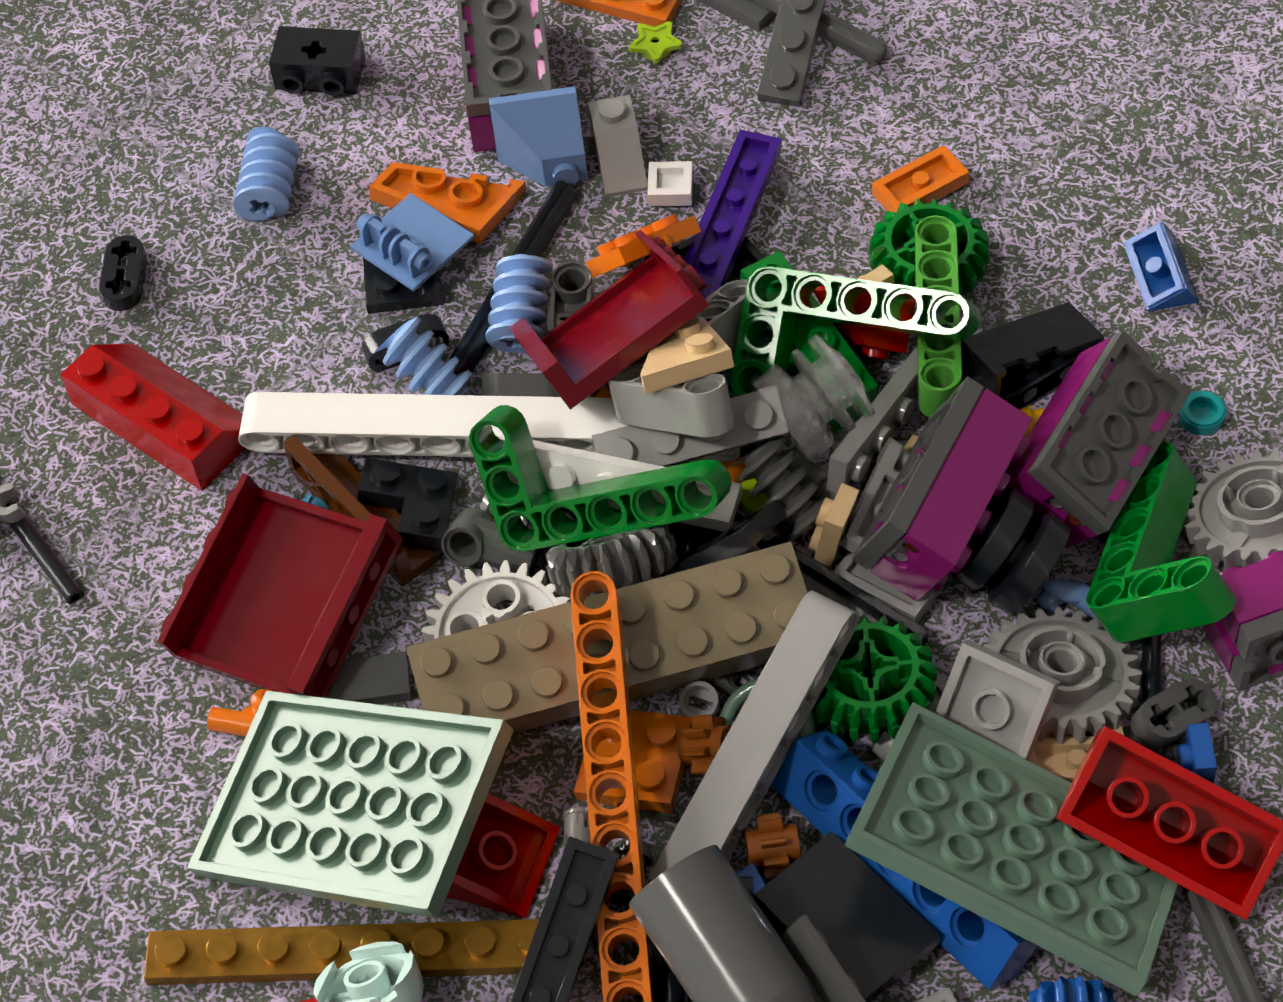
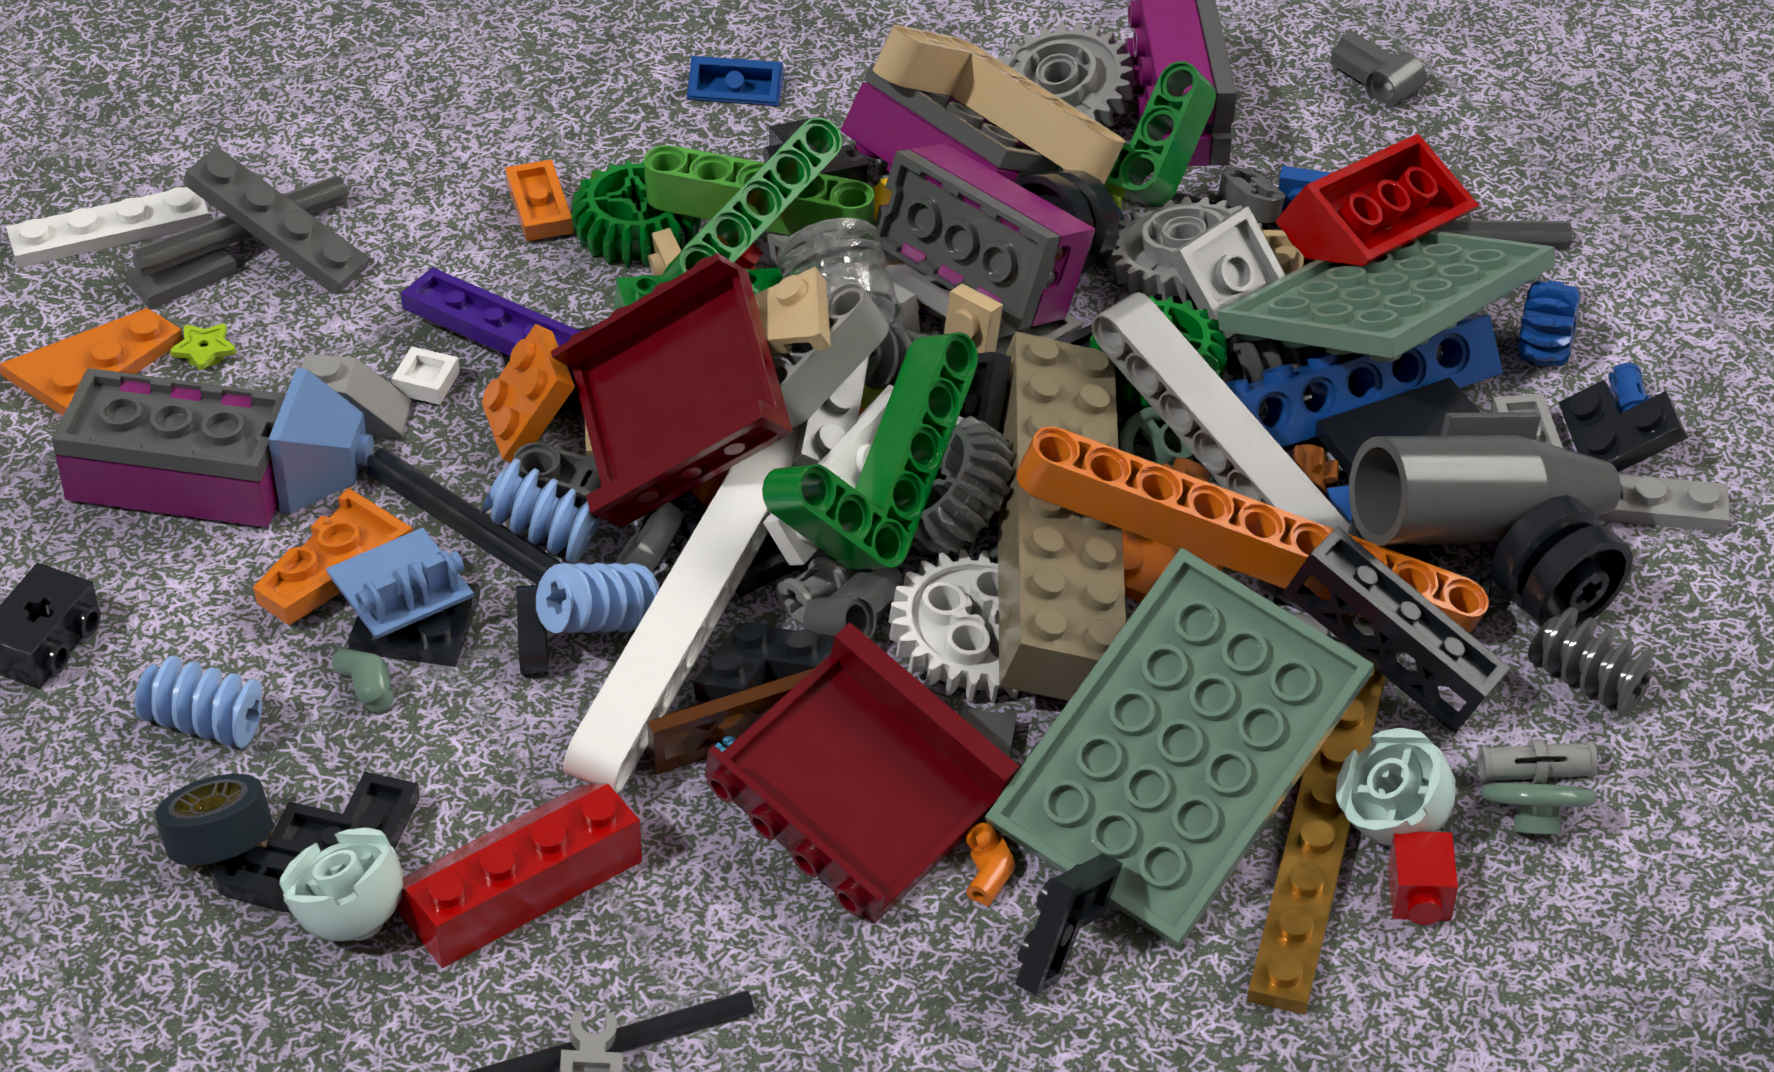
camera: 80 degrees left, 10 degrees down
(96, 310) = (346, 887): none -> light aqua cylinder
(151, 221) = (214, 819): none -> black wheel
(156, 763) = (1065, 907): none -> black plate
(168, 311) = (375, 804): none -> black plate
(327, 261) = (369, 677): none -> sand green arm
(1173, 414) = (1000, 95): none -> tan beam

